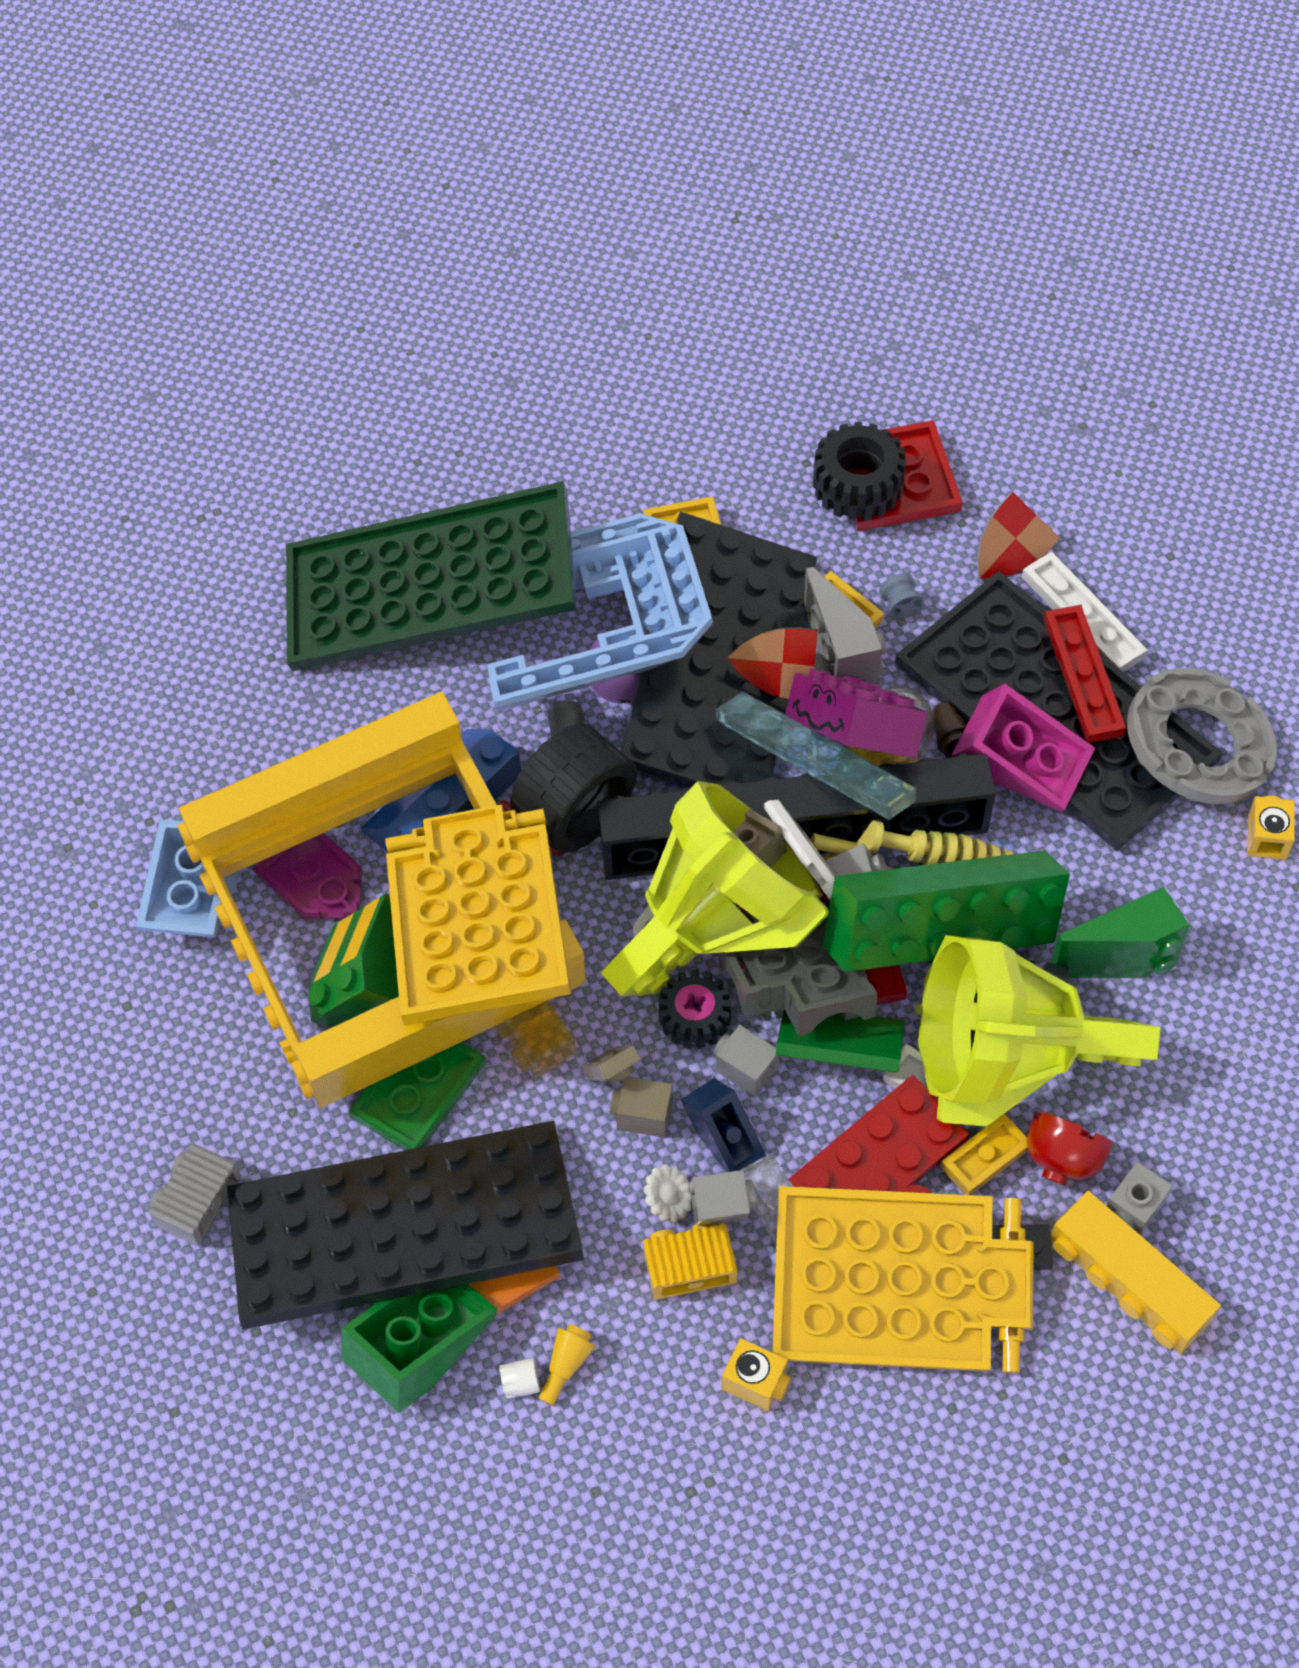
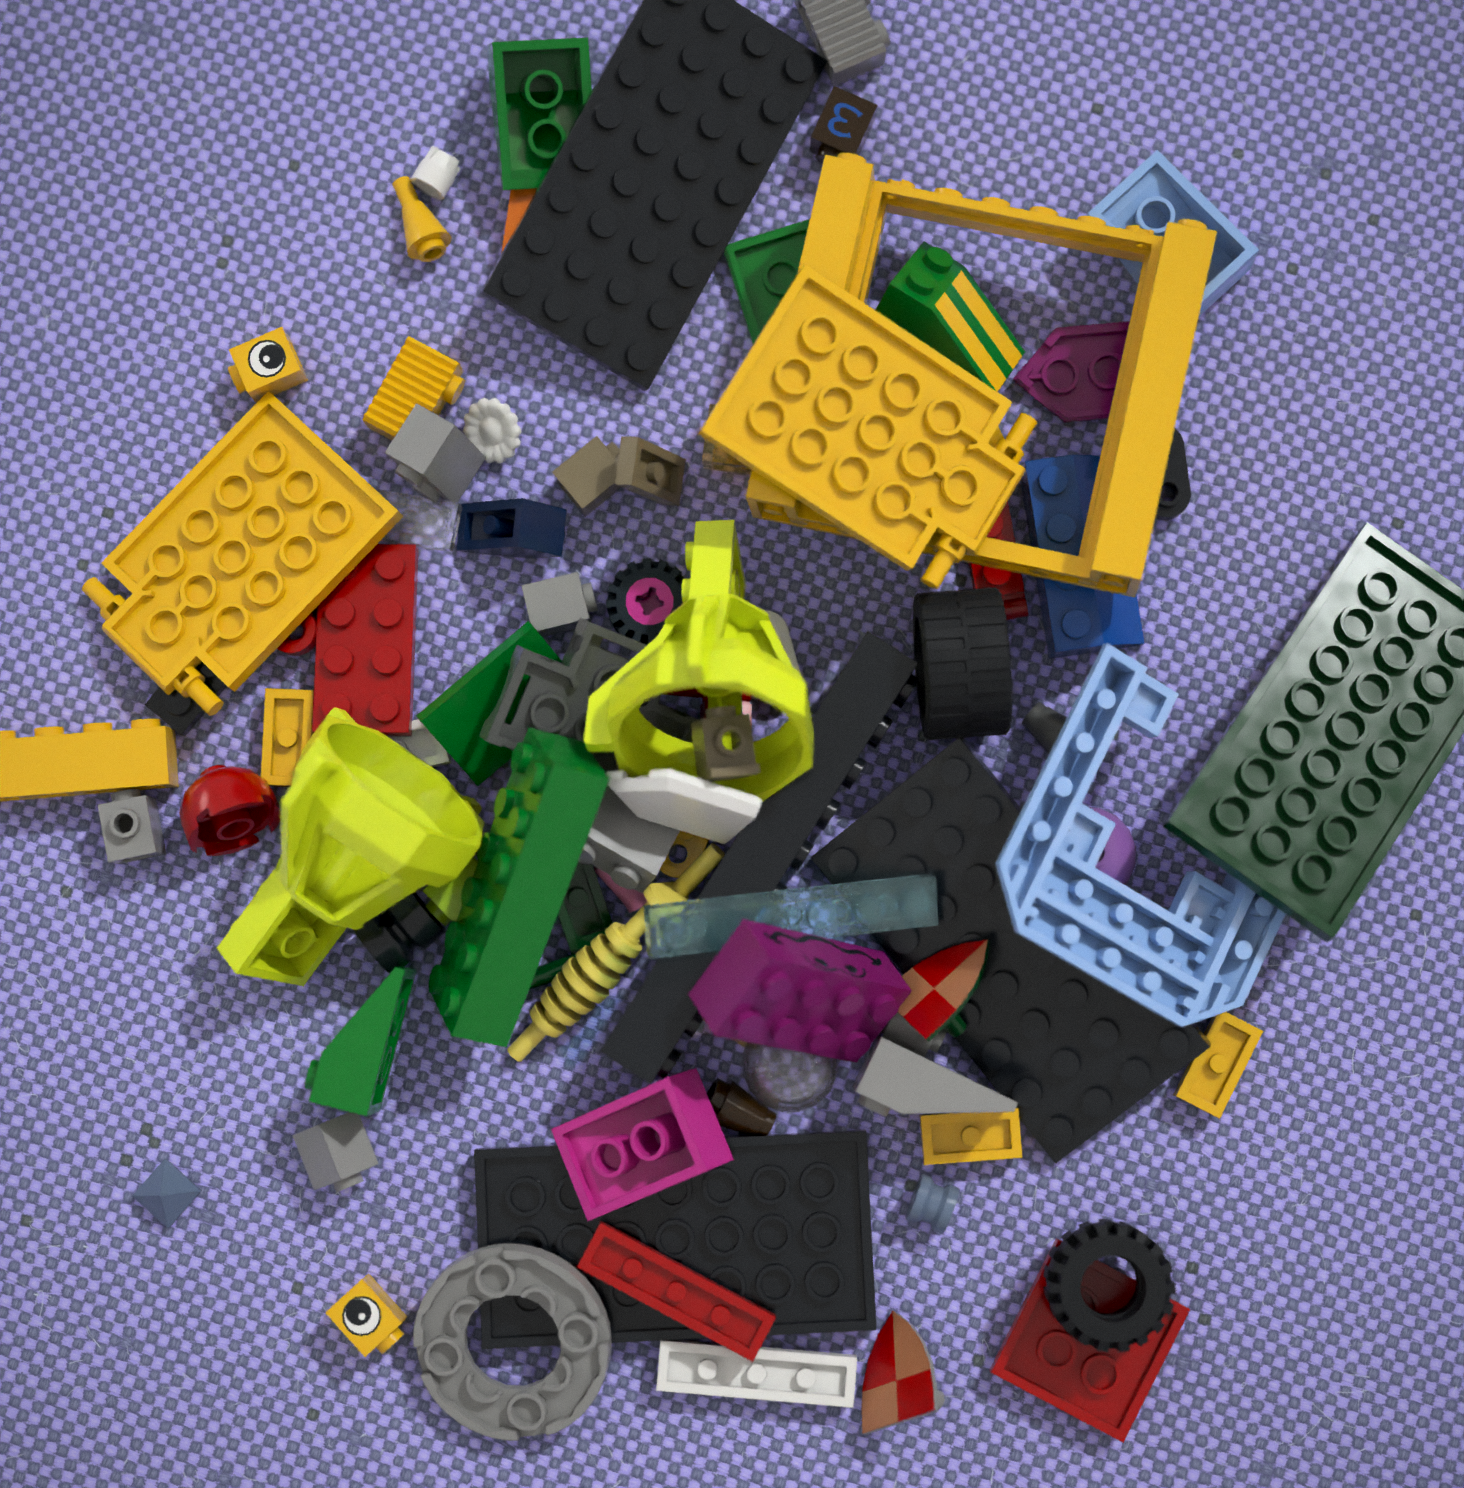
camera: 130 degrees right, 25 degrees up
(270, 1136) = (842, 125): none -> dark brown brick
(1205, 912) = (336, 1152): none -> light grey brick

